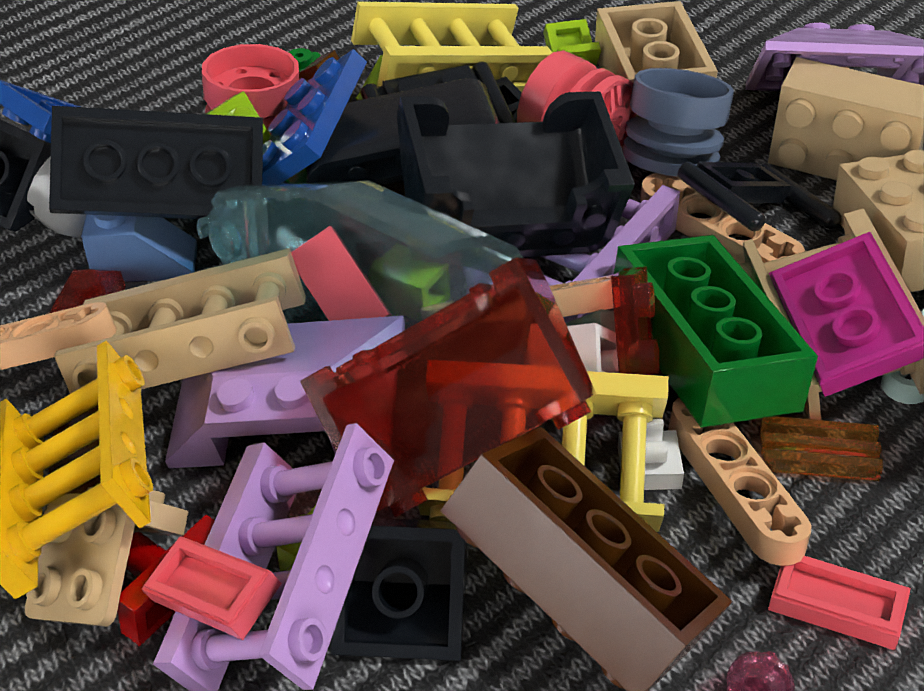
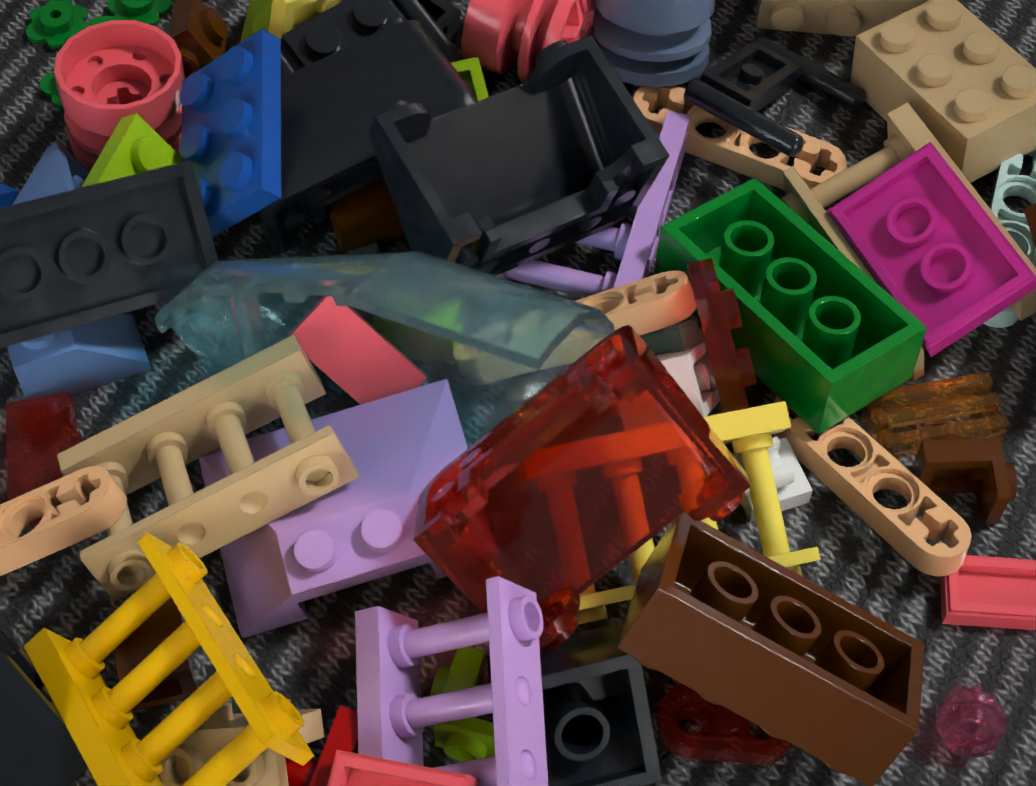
camera: 20 degrees left, 15 degrees up
(530, 636) = (723, 735): none -> clear red plate
(830, 489) = (965, 466): none -> reddish brown bracket

